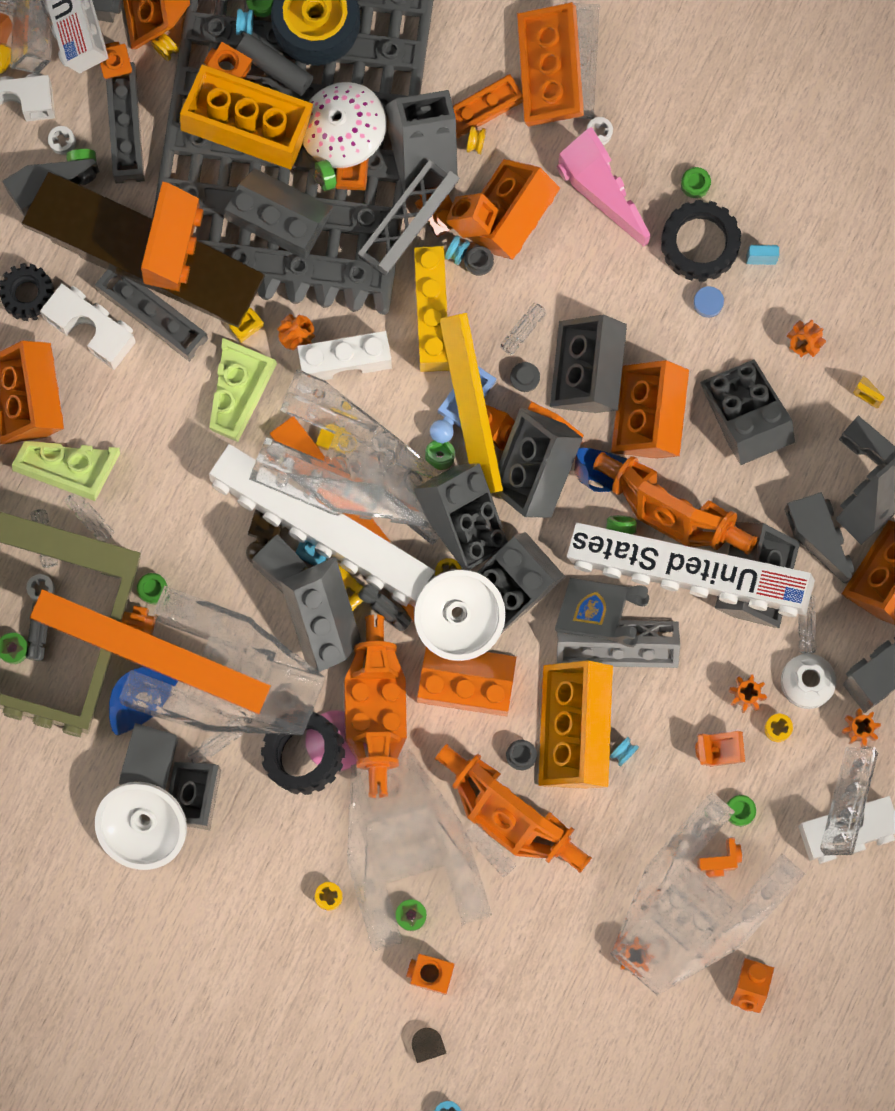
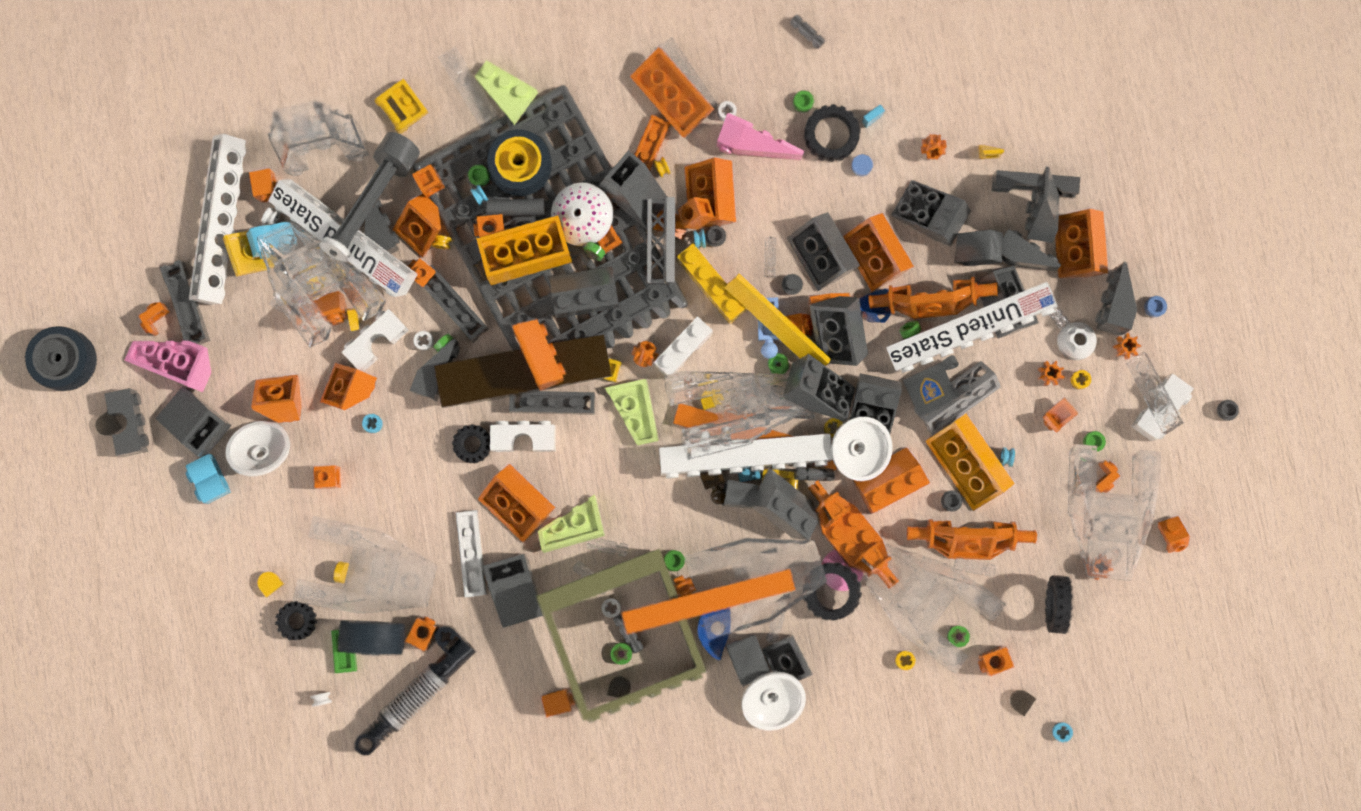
camera: 35 degrees left, 5 degrees up
(551, 958) = (1058, 604): none -> black tyre
(760, 107) = (807, 31): none -> dark grey axle
(770, 488) = (979, 248): none -> dark grey piece

